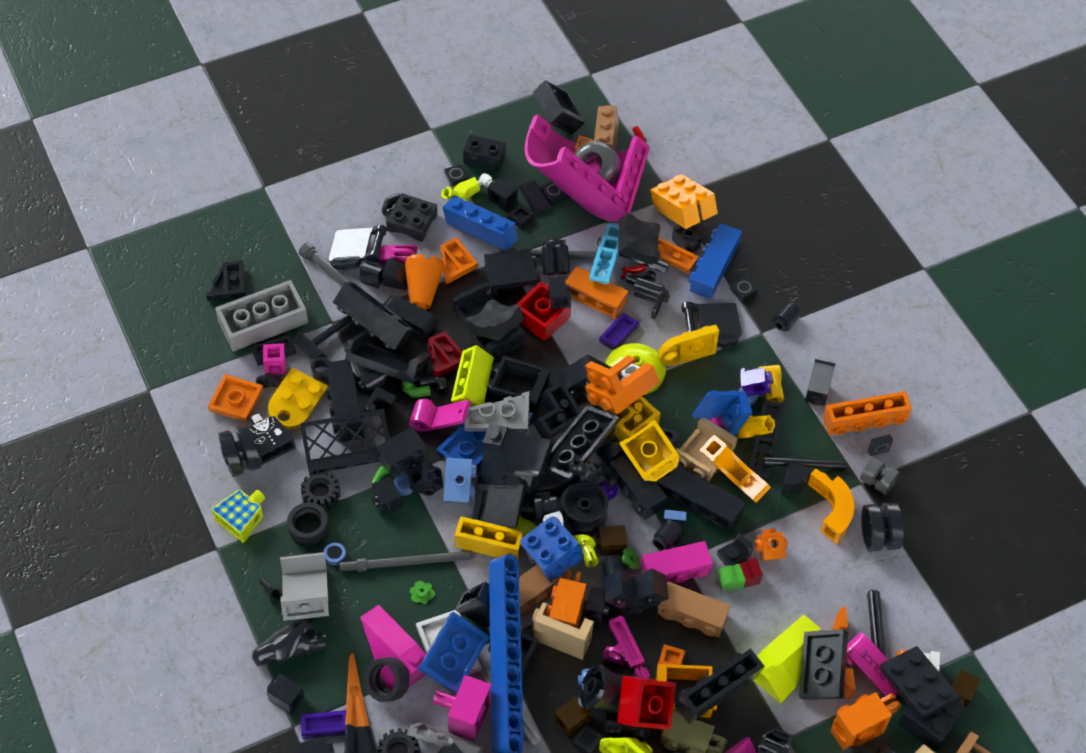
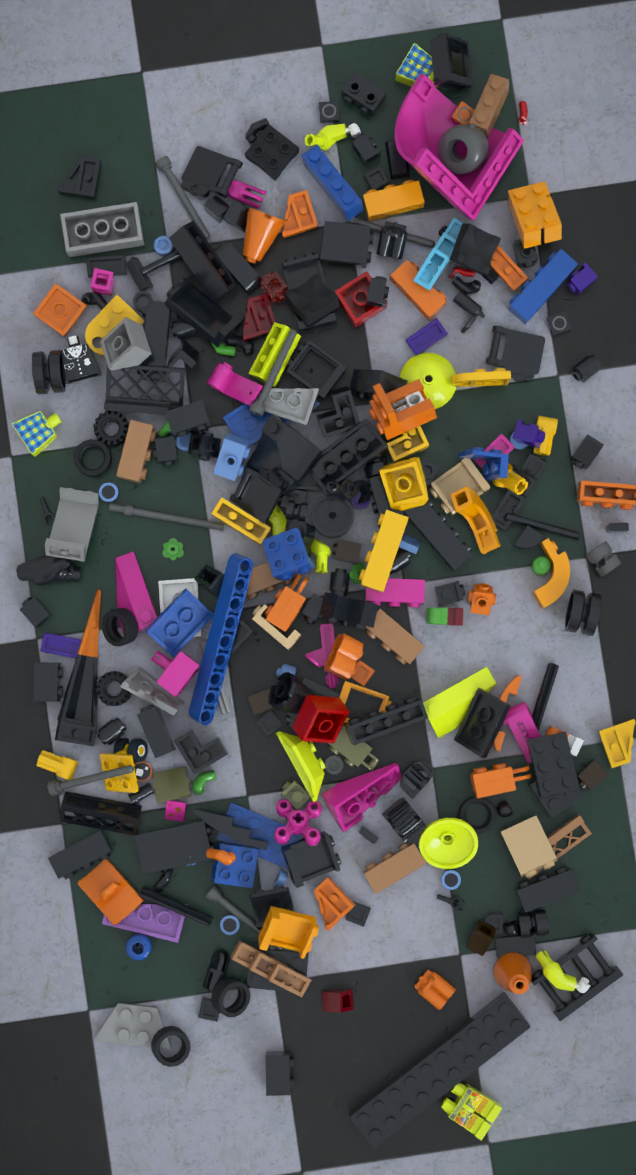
camera: 20 degrees right, 30 degrees up
(315, 402) = (125, 345): none -> light grey slope
(327, 318) = (163, 246): none -> medium blue tile
(354, 505) = (136, 451): none -> medium nougat brick
(452, 321) = (274, 287): none -> clear red brick
(472, 422) = (258, 406): none -> dark grey piece
(522, 120) = (414, 64): none -> torso
(545, 226) = (393, 200): none -> light orange brick
(647, 642) = (344, 656): none -> orange brick
(652, 519) = (384, 551): none -> yellow brick
(750, 246) = (581, 279): none -> dark purple brick
(818, 502) = (541, 565): none -> bright green piece
(976, 650) = (618, 742): none -> yellow wing

